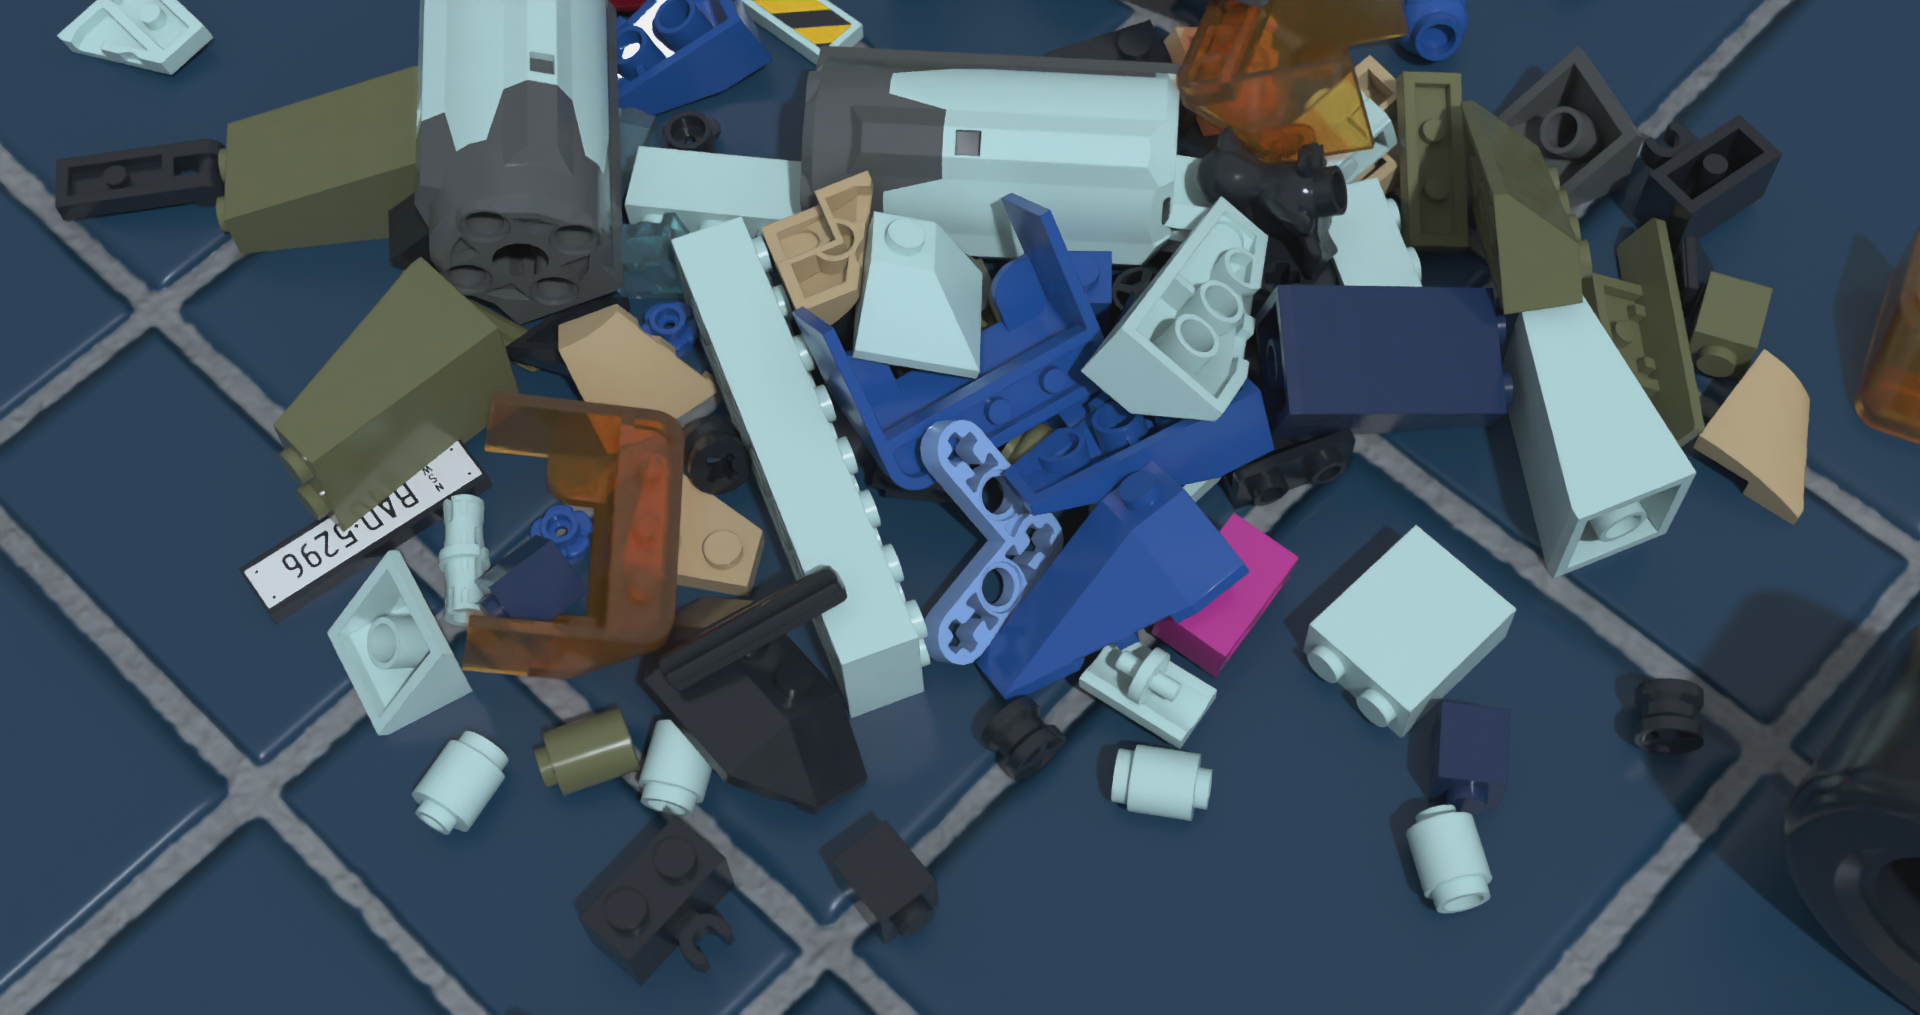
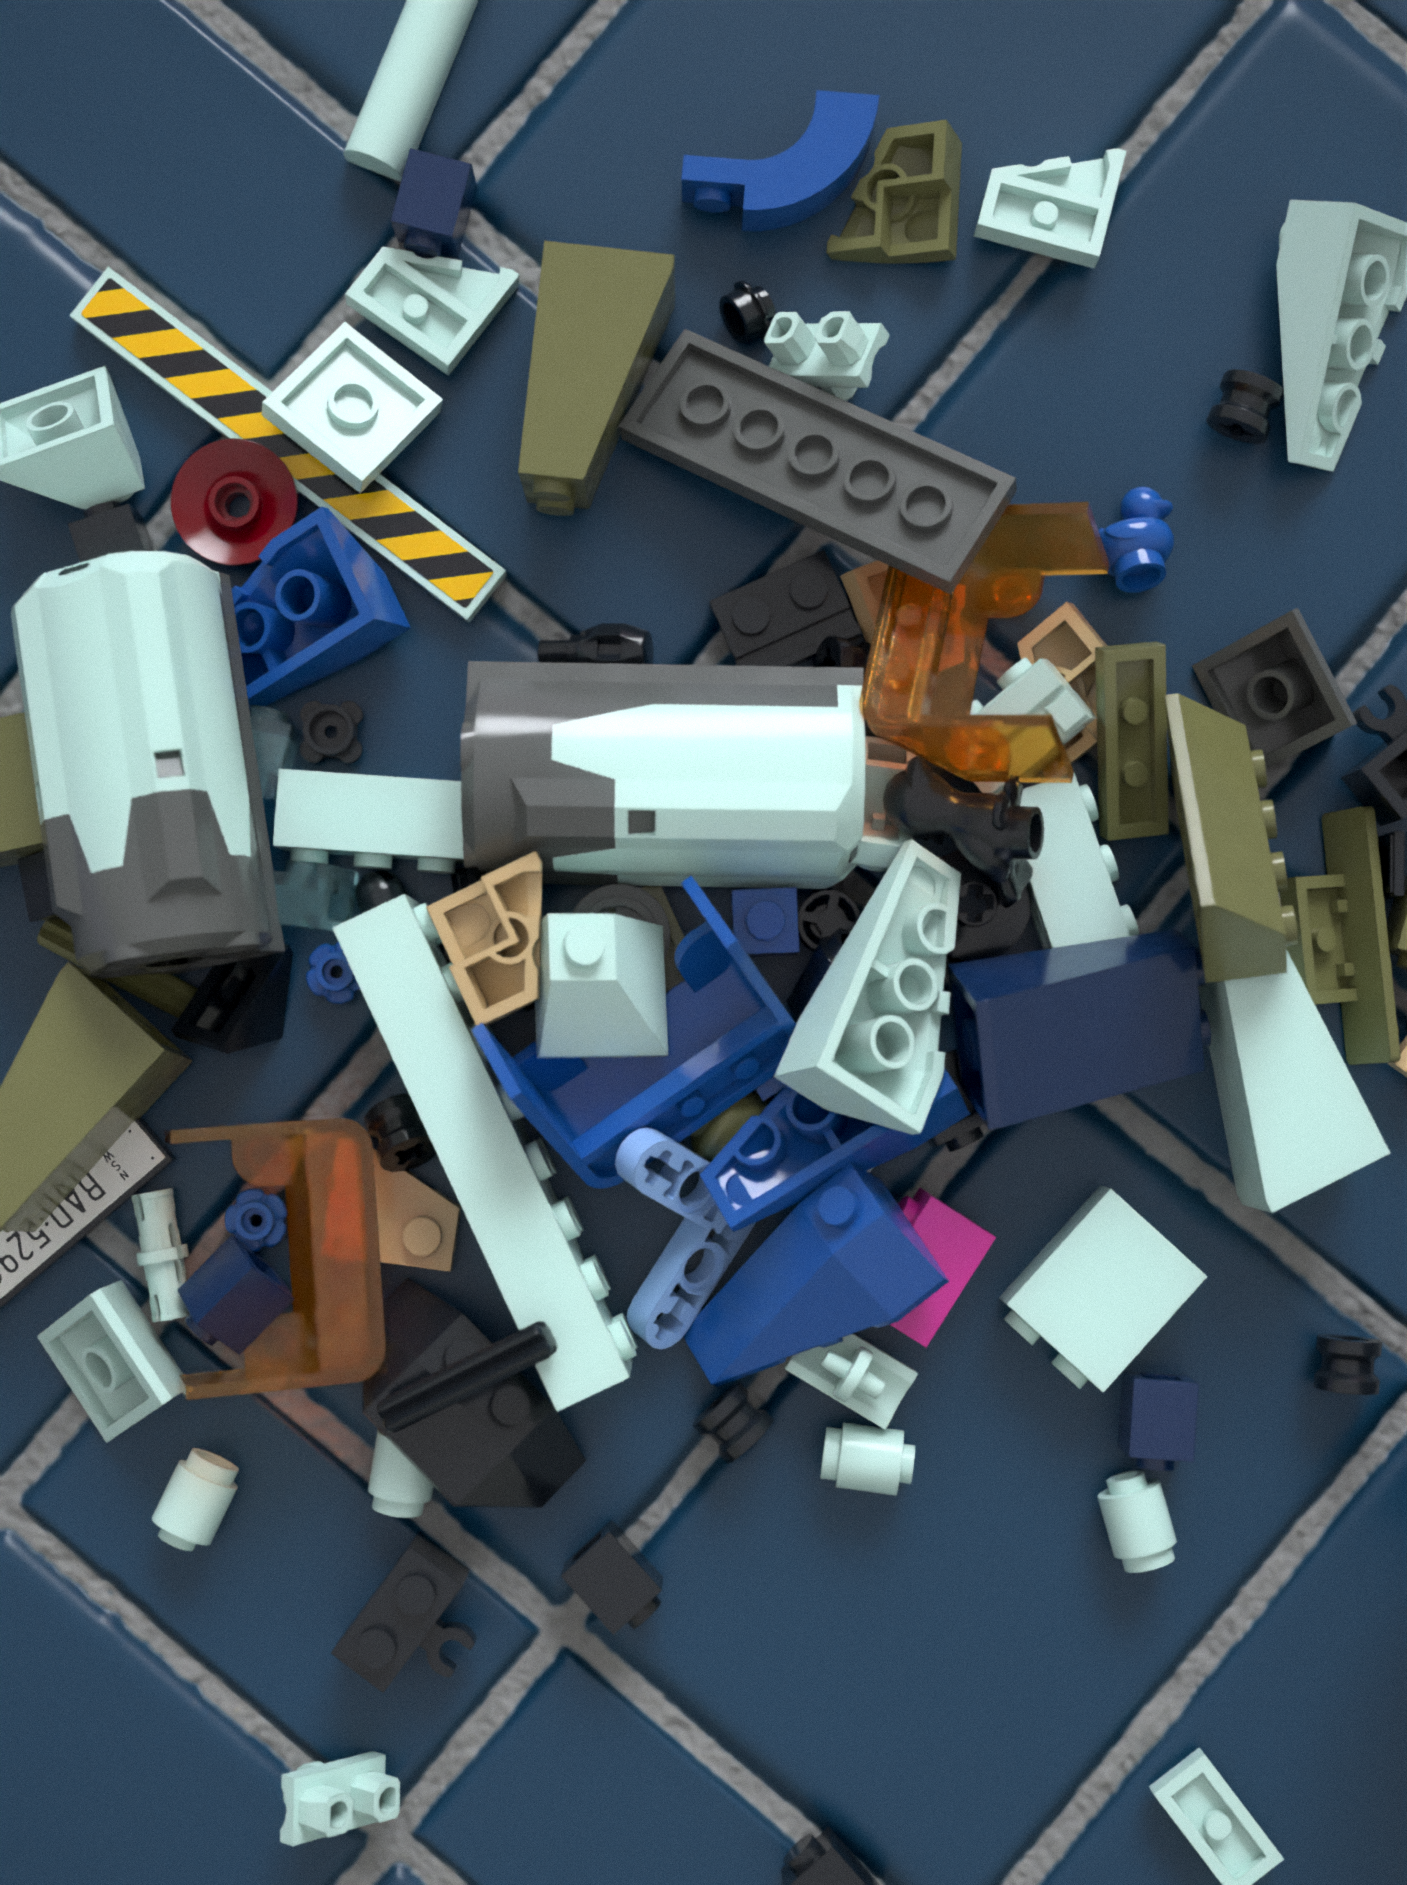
camera: 10 degrees left, 25 degrees up
(587, 752) = (315, 1461): olive brick -> none
(628, 367) = (300, 1053): tan slope -> none

